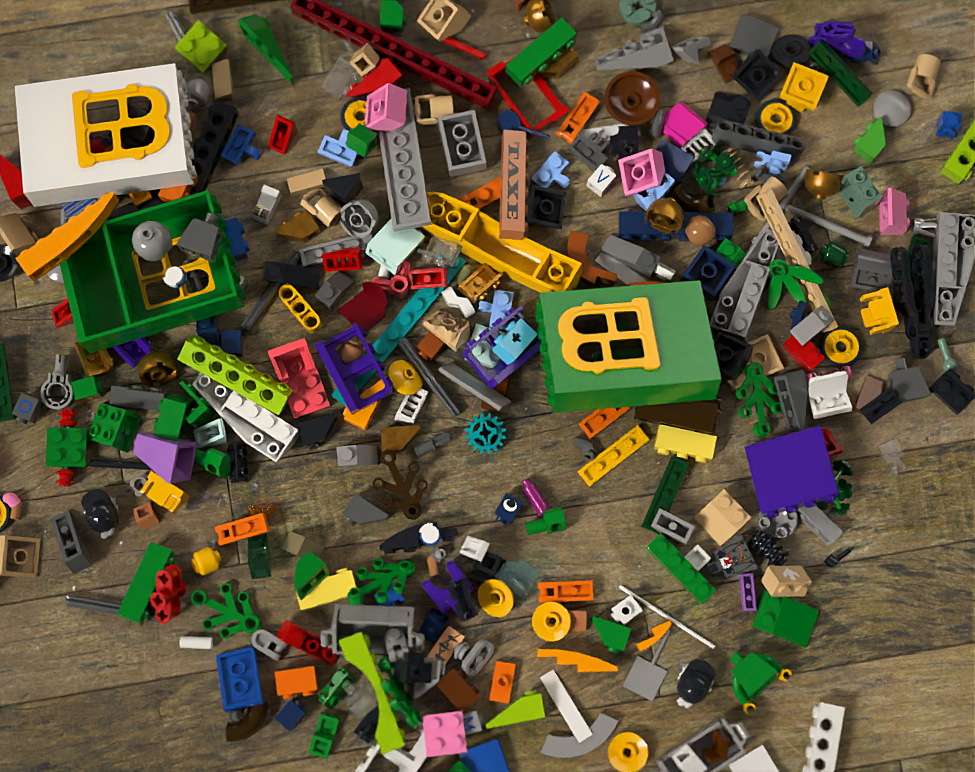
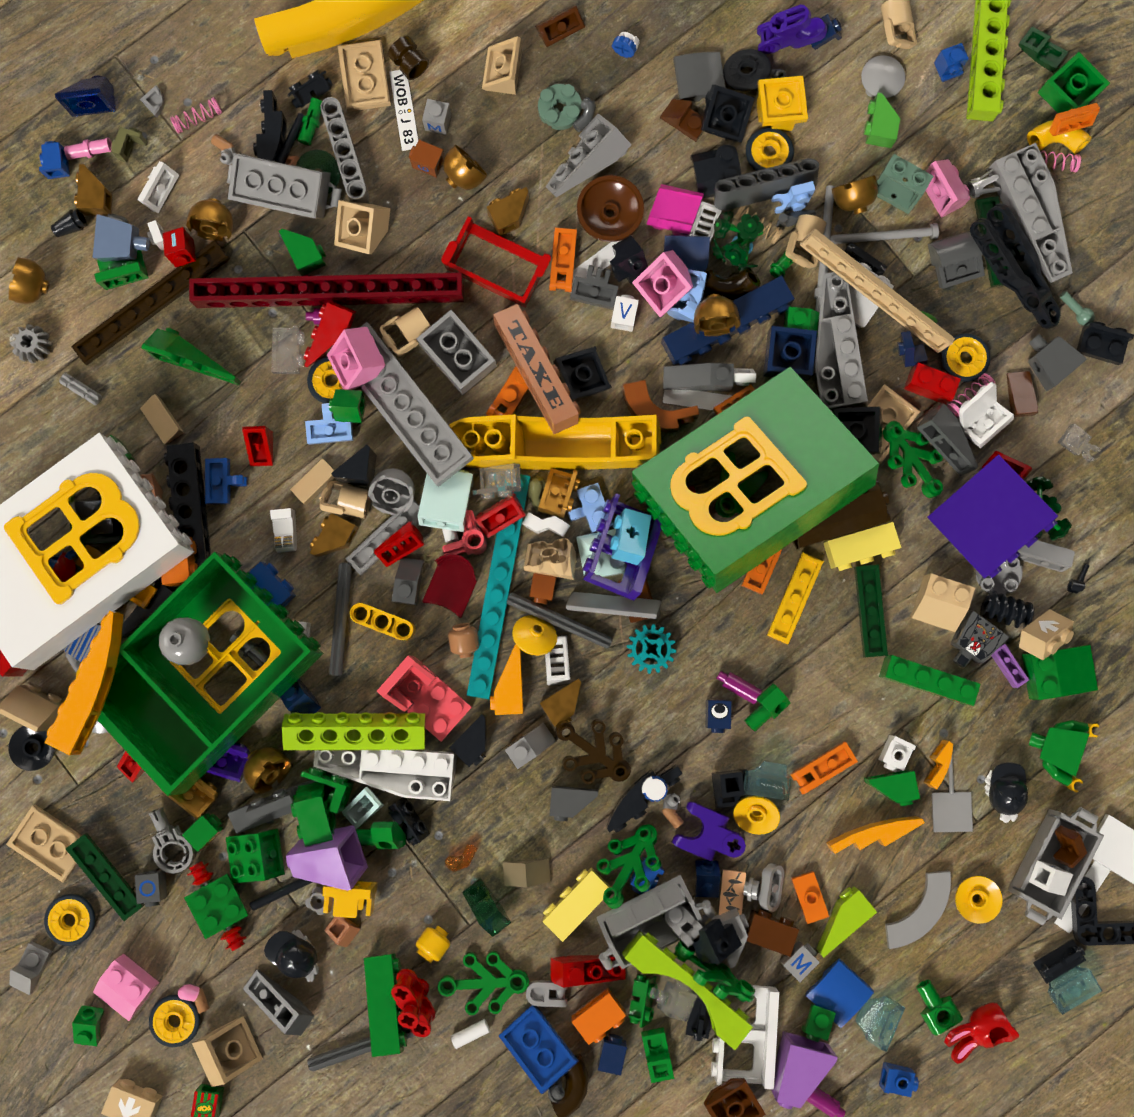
camera: 30 degrees left, 5 degrees up
(175, 277) = (232, 667): white piece -> none
(197, 93) = (141, 449): light grey head -> none
(200, 46) = (116, 396): lime plate -> none
(202, 238) = (237, 609): dark grey torso -> none
(232, 342) = (331, 698): dark blue brick -> none
(242, 529) = (453, 889): orange plate -> none
(290, 274) = (352, 592): black slope -> none
(308, 574) = (551, 901): green slope -> none
(345, 374) = (470, 669): dark purple window -> none
(364, 59) = (303, 317): tan brick -> none
(432, 444) = (601, 689): dark grey axle -> none
(444, 734) = (784, 988): bright pink plate -> none
(463, 47) = (401, 247): red bar -> none
(464, 607) = (720, 833): black hinge -> none
(474, 548) = (707, 776): white tile -> none
(511, 121) = (494, 301): dark blue piece -> none
(541, 52) = (488, 209): green brick -> none
(542, 624) = (827, 818): yellow dish -> none
(551, 172) = (566, 333): light blue plate -> none
(566, 706) = (888, 885): white sticker -> none
(578, 620) = (851, 791): nougat slope -> none
(587, 447) = (765, 605): dark grey arm -> none
(656, 130) = (652, 231): dark grey arm -> none
(667, 617) = (937, 735): white axle -> none
(672, 527) = (900, 641): light grey slope -> none
(689, 48) = (640, 123): light grey slope -> none
(697, 557) = (939, 658): white plate -> none
(700, 230) = (759, 312): medium nougat hair -> none
(787, 275) = (870, 311): green plant -> none
(812, 325) = (930, 351): light grey slope -> none
(834, 254) = (907, 263): dark green head -> none
(840, 72) = (811, 66): dark green plate -> none
(879, 312) = (990, 297): yellow panel -> none
(881, 405) = (1044, 397): black hinge -> none

